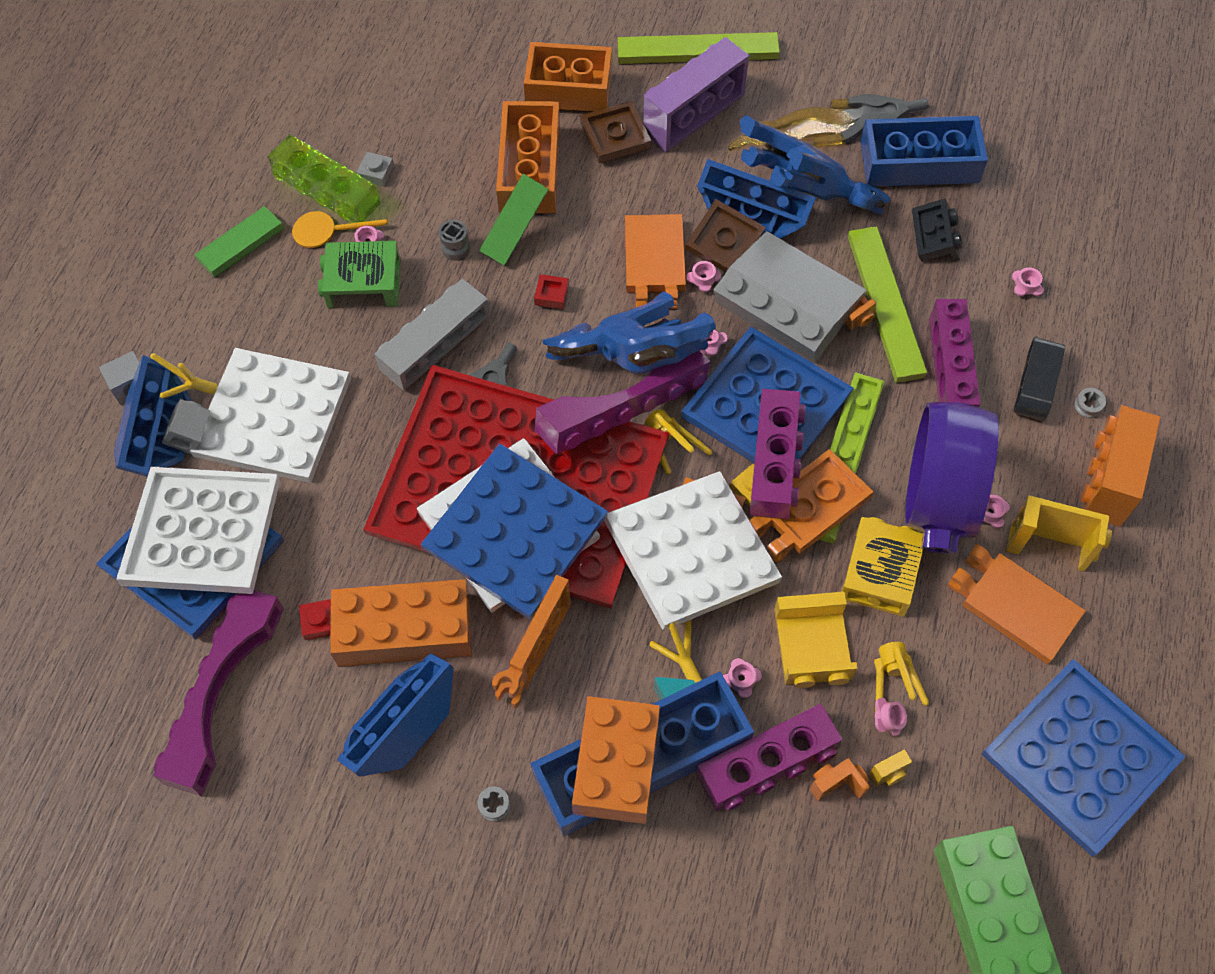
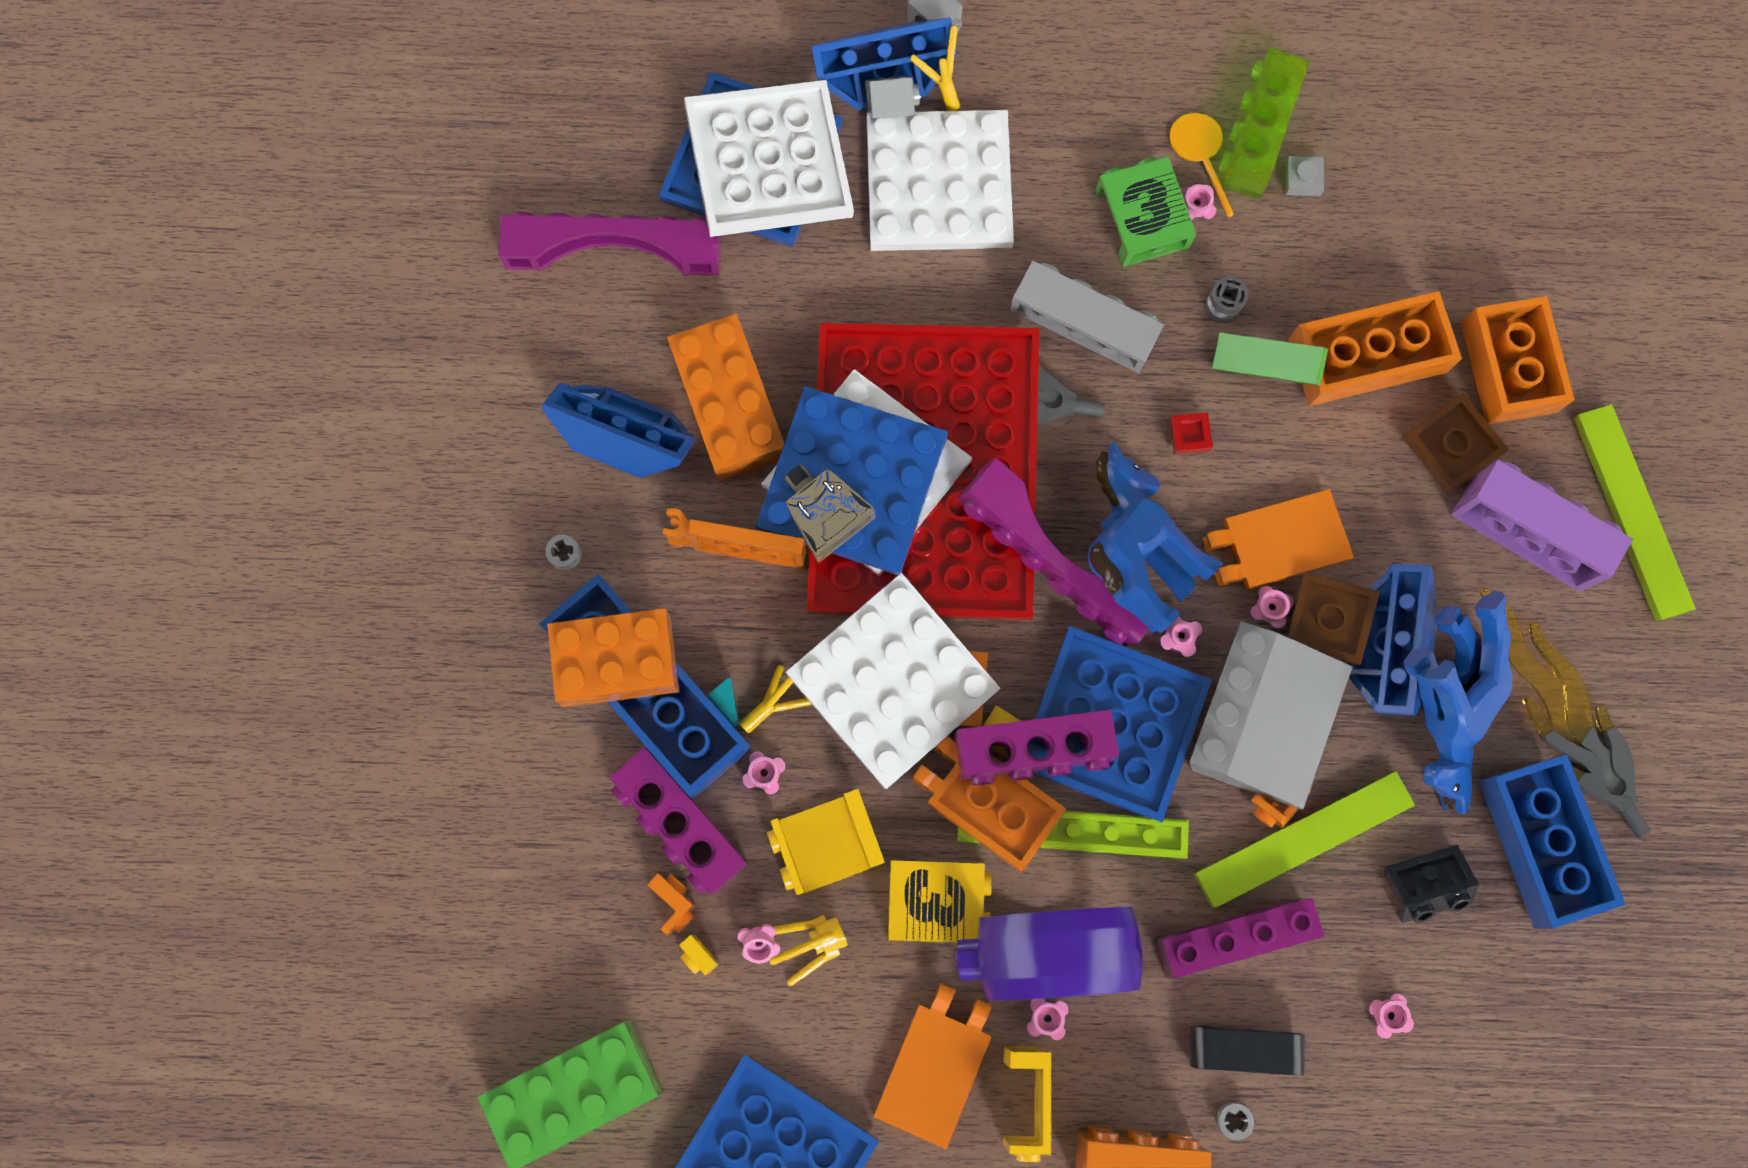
camera: 70 degrees right, 15 degrees up
(239, 241) = (1151, 62): bright green tile -> none
(315, 619) = (712, 307): red plate -> none
(539, 547) = (826, 510): none -> dark tan torso
(660, 420) = (1046, 610): yellow plant -> none

